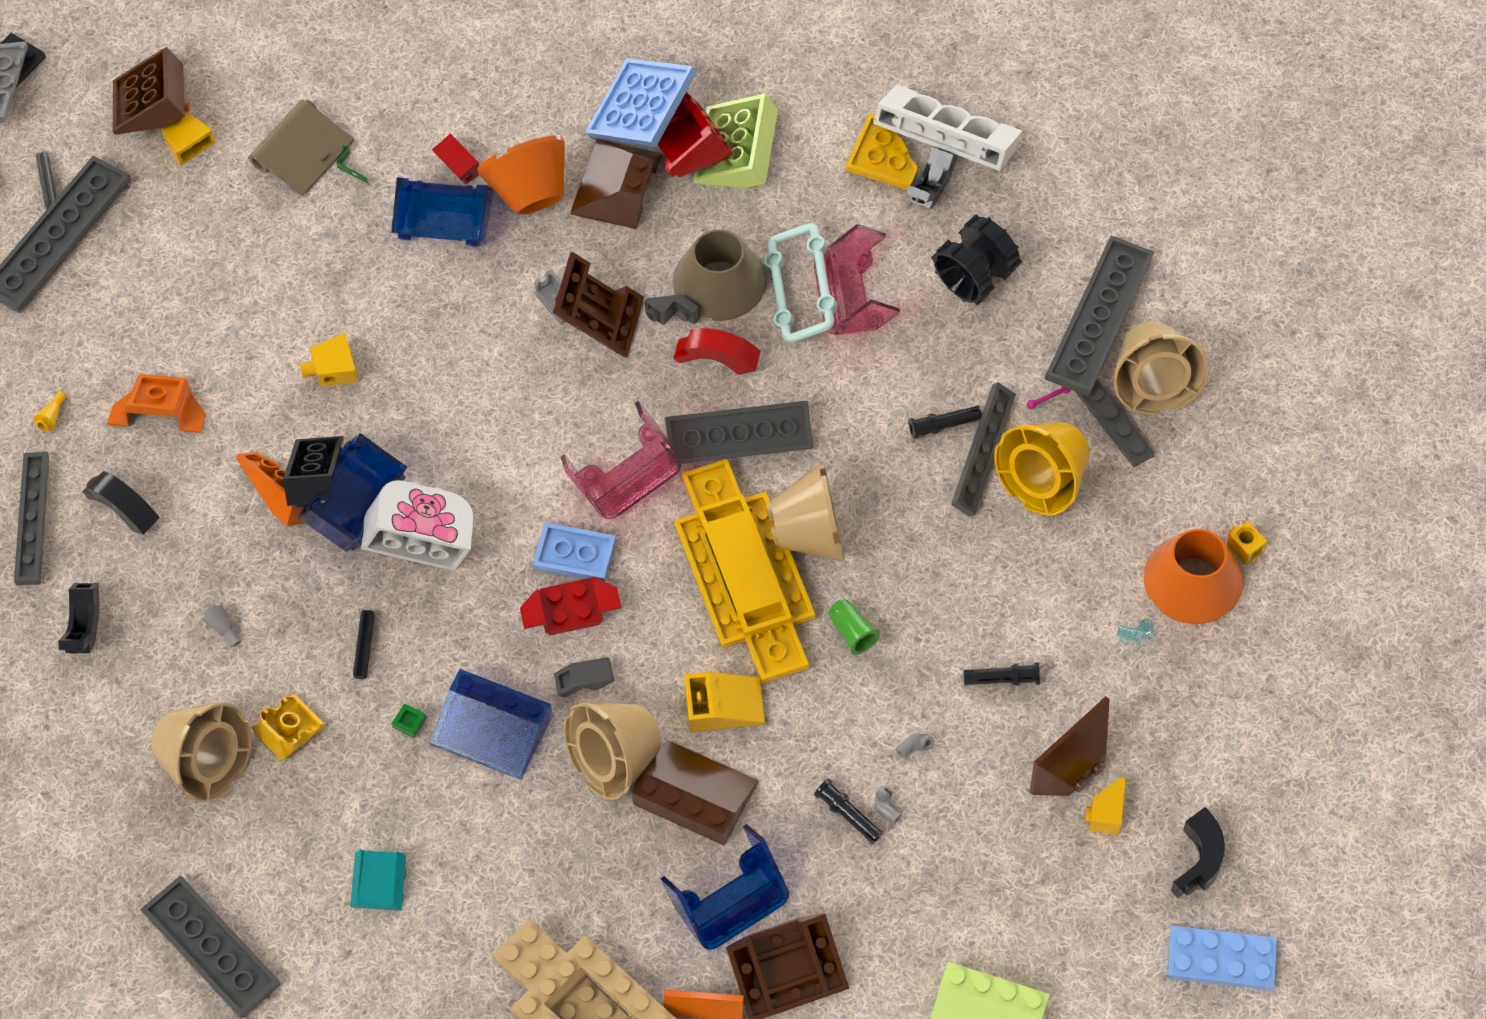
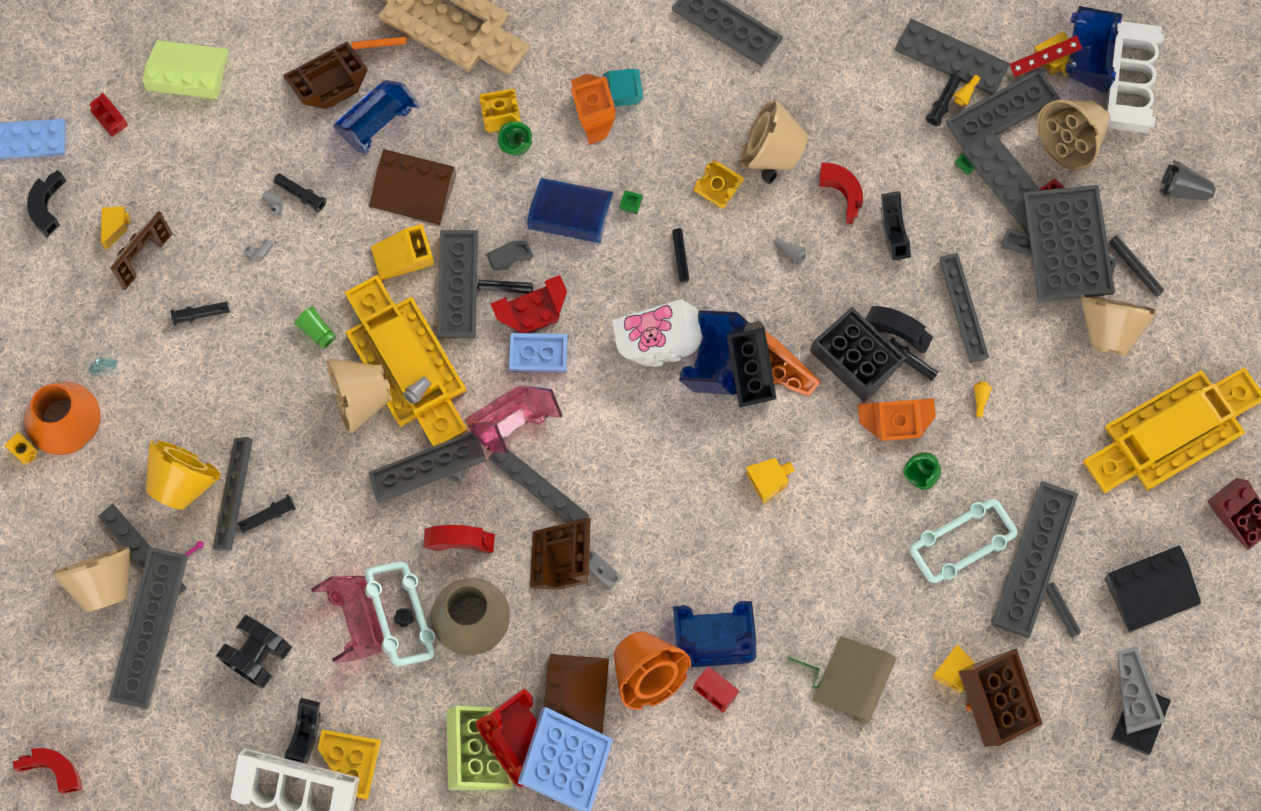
camera: 170 degrees right, 10 degrees up
(92, 255) = (976, 511): none -> light aqua bar
(114, 464) = (915, 362): none -> black pin
(132, 704) = (843, 180): none -> red arch
(148, 336) = (922, 470): none -> green piece
(179, 477) = (857, 354): none -> black slope
(424, 860) = (594, 106): none -> orange piece
(542, 822) = (510, 138): none -> green piece
(554, 879) = (499, 109): none -> yellow slope
(598, 642) = (505, 286): none -> black axle
(602, 395) = (538, 486): none -> dark grey plate
(611, 744) = (471, 195): tan cone -> none
(660, 650) = (457, 284): none -> dark grey plate
(664, 307) = (511, 574): dark grey slope -> none
(734, 511) = (415, 391): none -> light grey cone
(800, 282) = (403, 612): none -> black plate
(1103, 968) = (107, 115): none -> red hinge
(1220, 200) = (66, 773): none -> red arch

